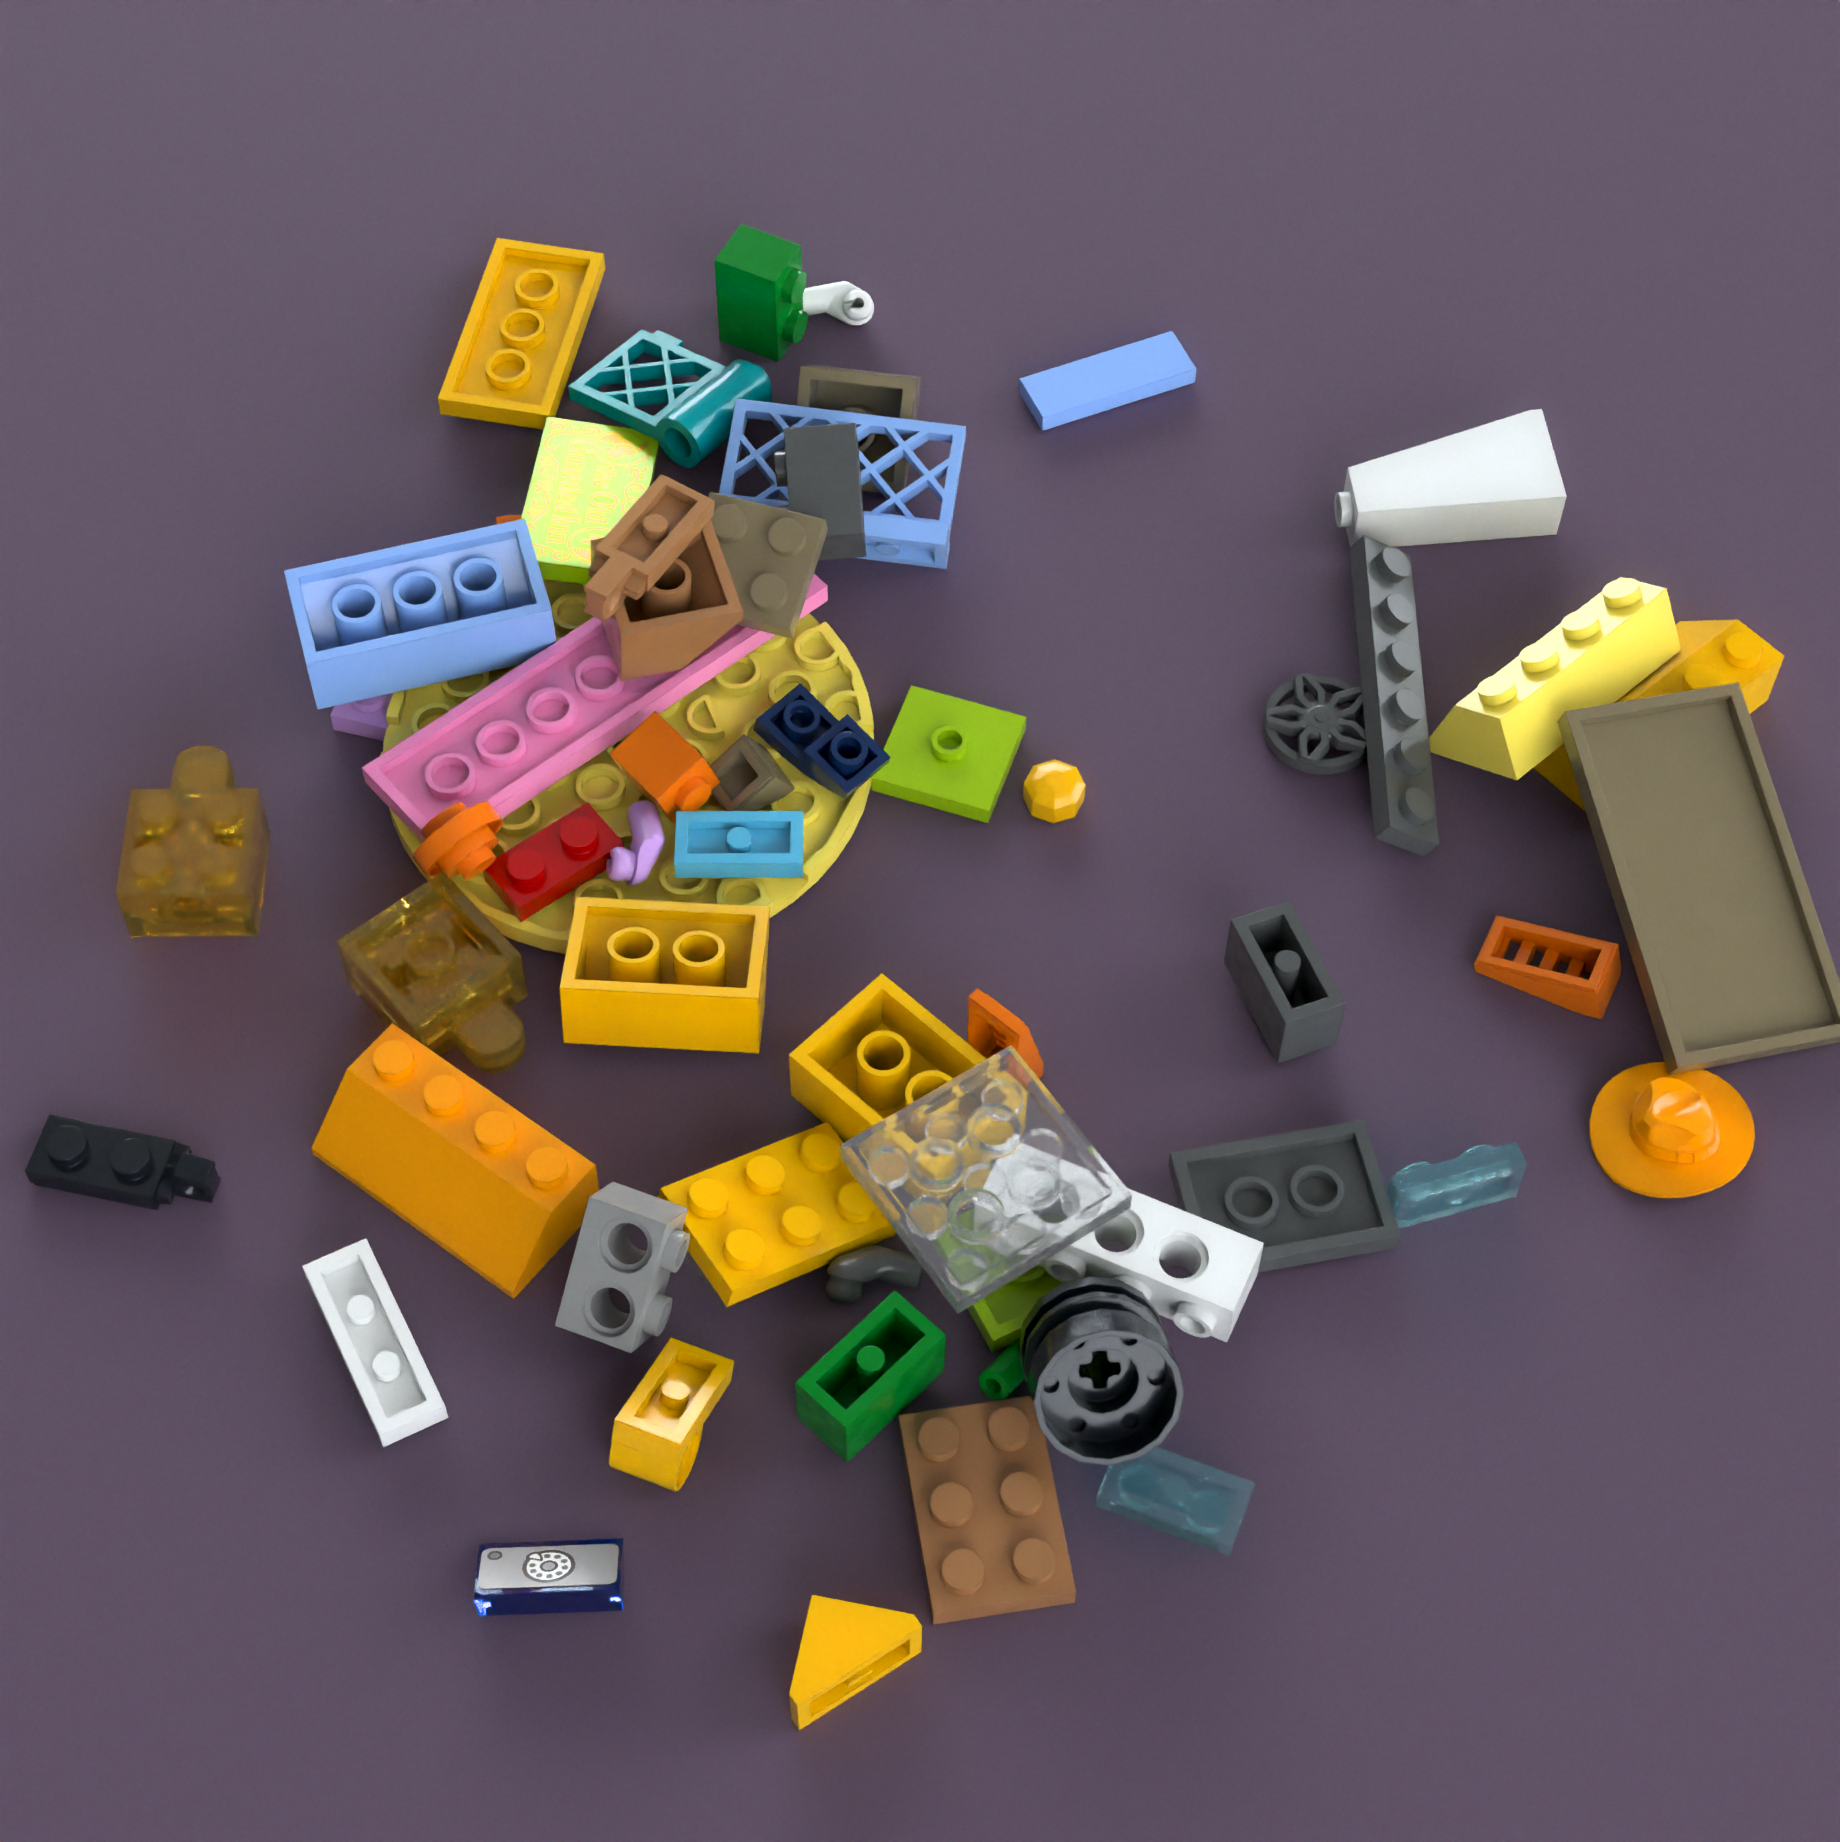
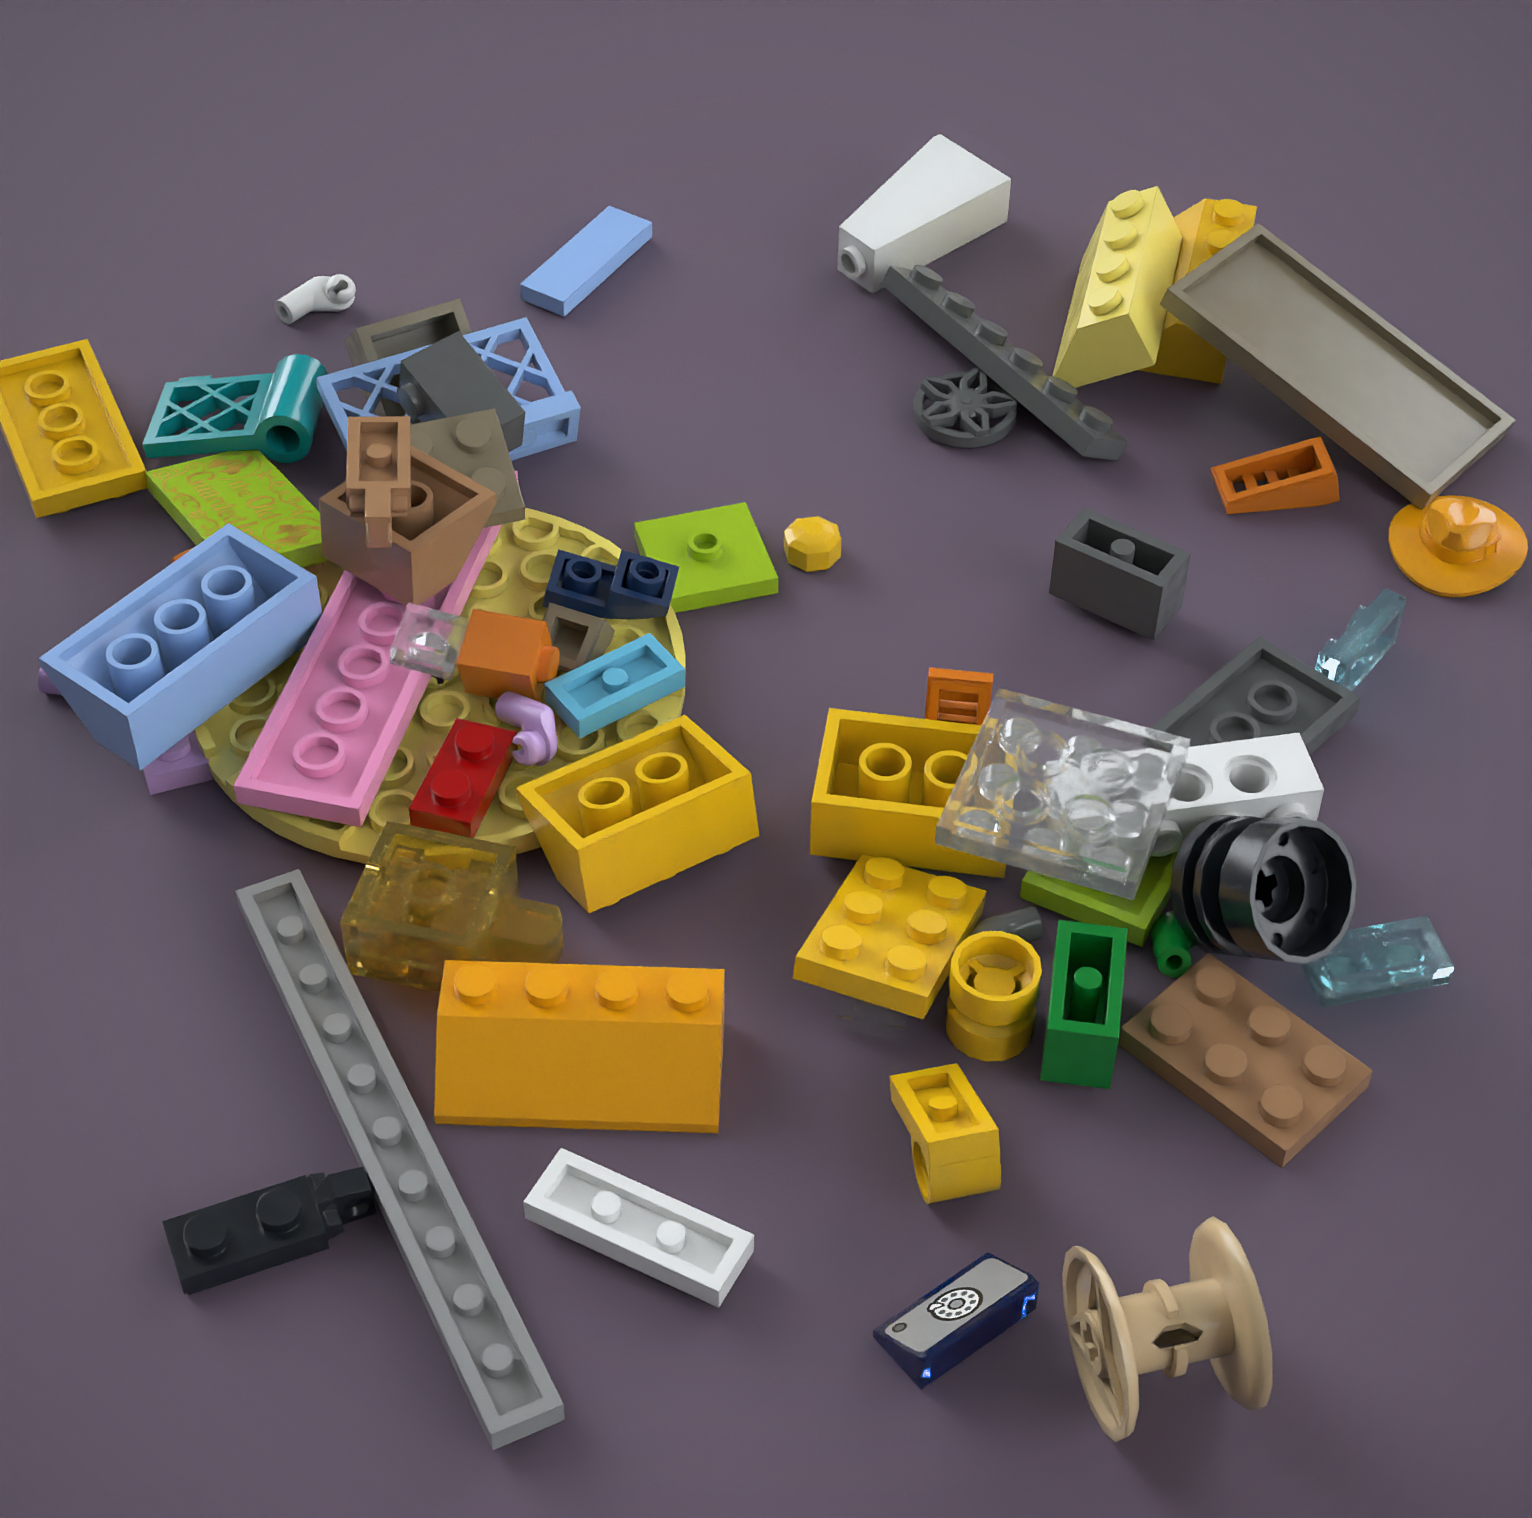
camera: 35 degrees left, 10 degrees down
(194, 853) = (120, 939): clear yellow brick -> none
(250, 1169) = (404, 1168): none -> light grey plate
(459, 841) = (384, 789): orange plate -> none
(601, 719) = (428, 641): none -> clear plate
(609, 1260) = (799, 1039): light grey brick -> none
(621, 1680) = (1167, 1328): none -> tan piece
(760, 292) = (261, 302): green brick -> none
(803, 1315) = (992, 995): none -> yellow wheel
(846, 1651) = (1252, 1204): yellow slope -> none

